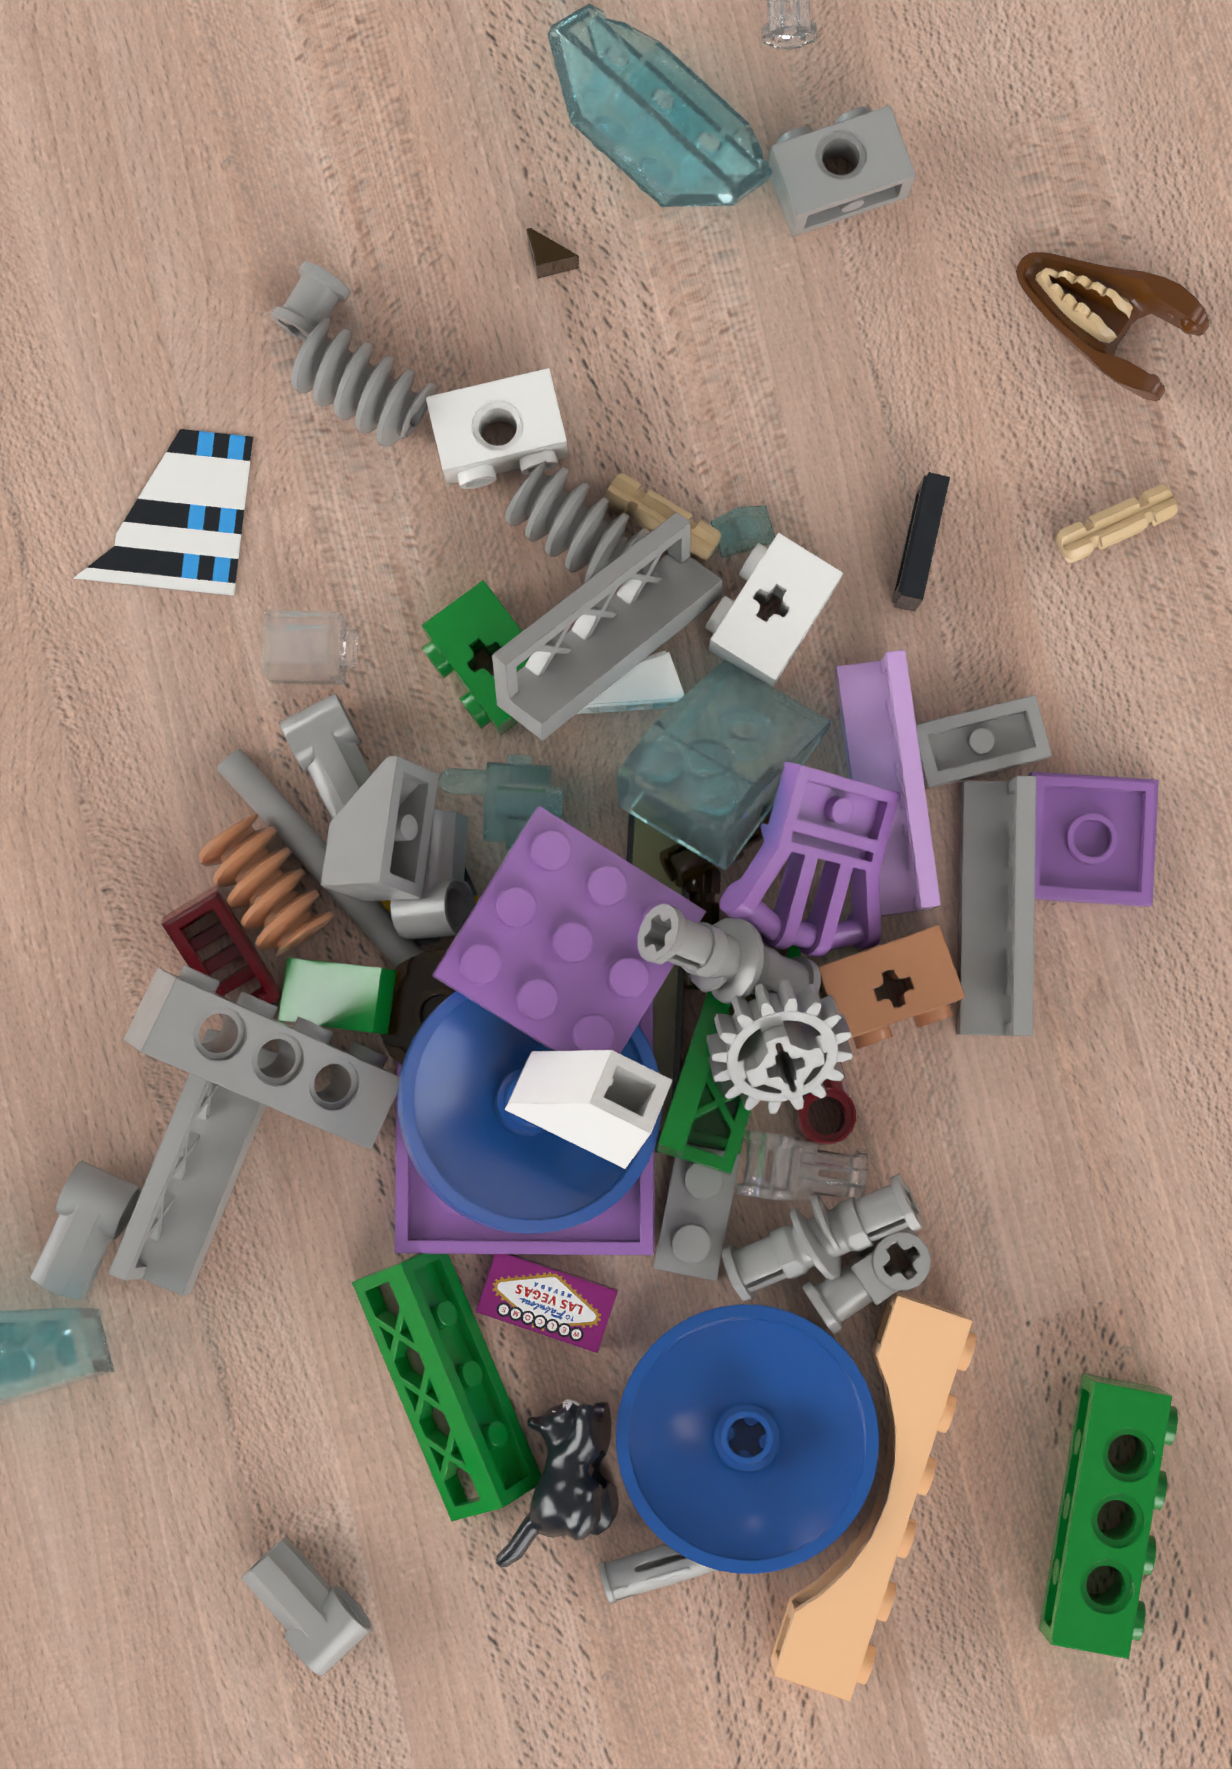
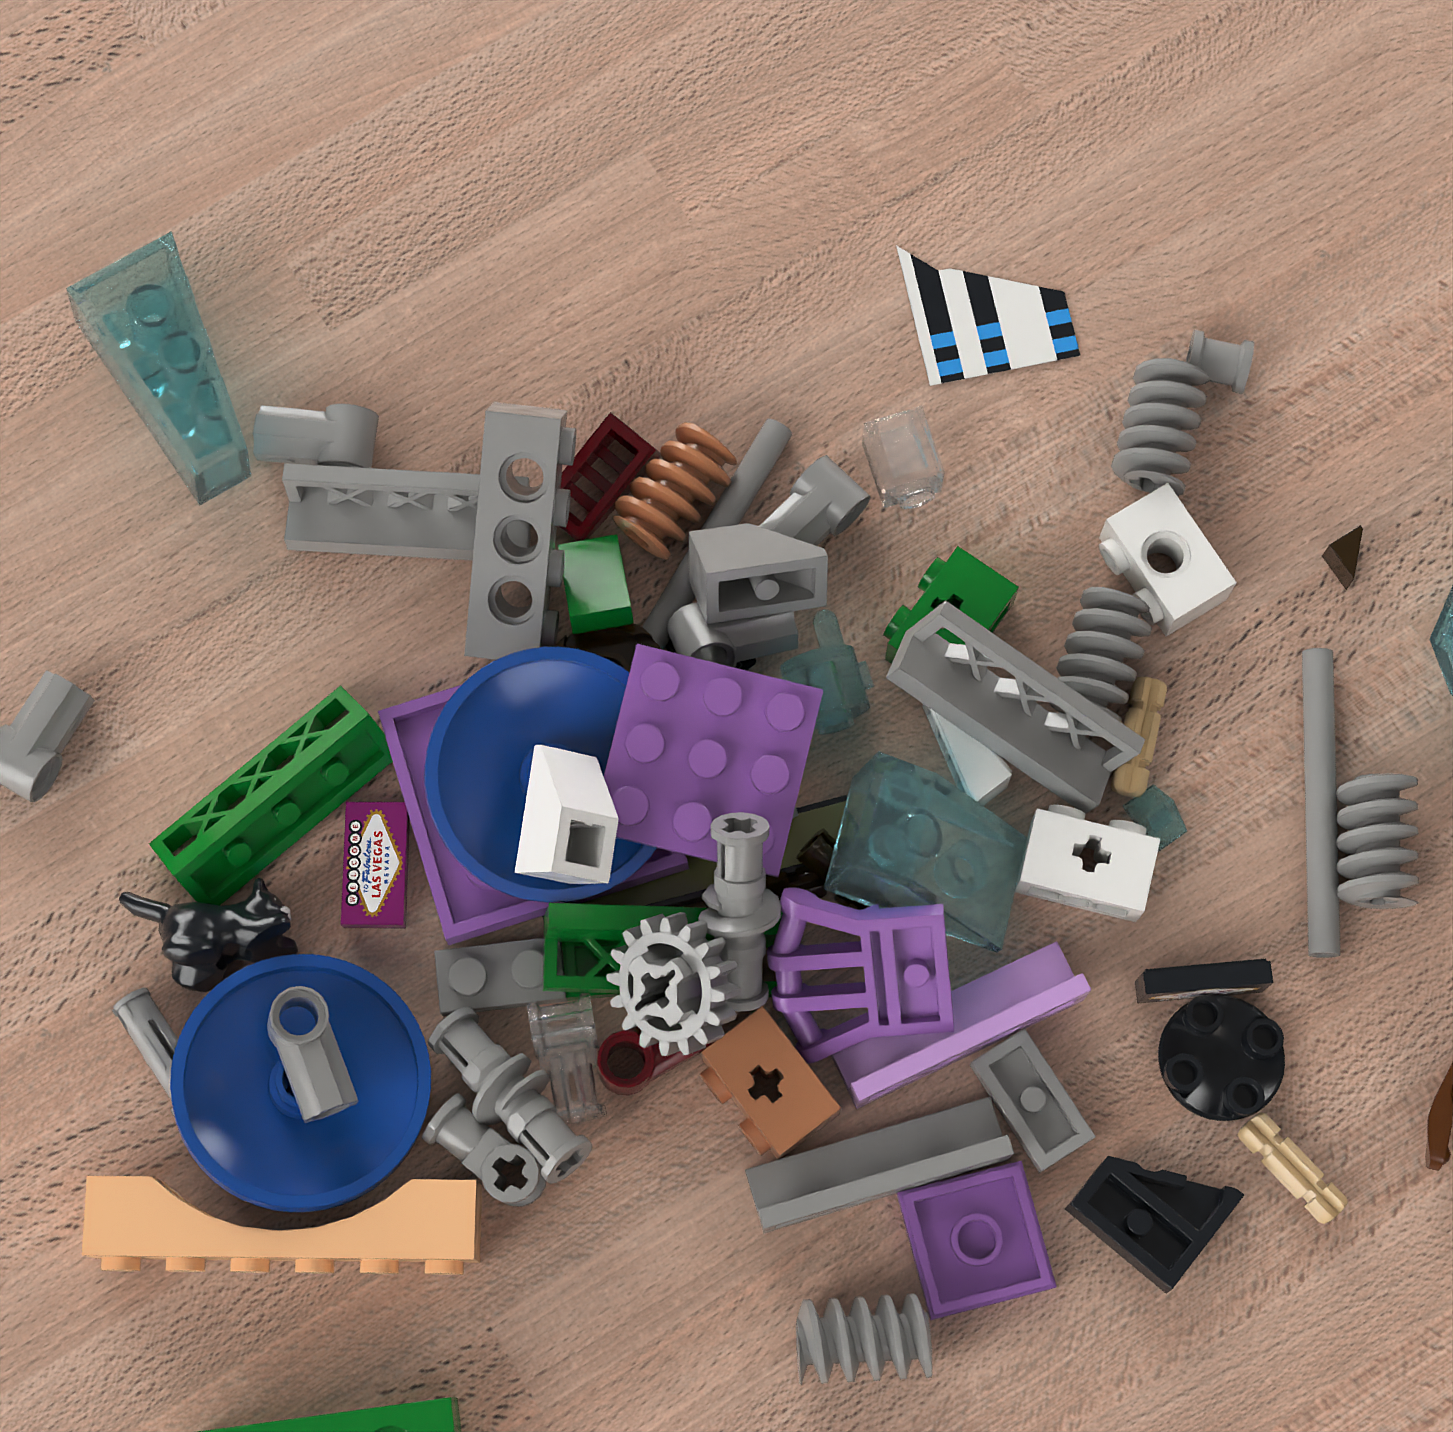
camera: 75 degrees right, 10 degrees down
(739, 1422) = (311, 1059): none -> light grey piece
(781, 369) = (1320, 803): none -> light grey piece
(840, 329) = (1375, 841): none -> light grey piece
(995, 551) = (1221, 1057): none -> black dish
(1122, 668) = (1152, 1217): none -> black wing
(1153, 975) = (863, 1338): none -> light grey piece

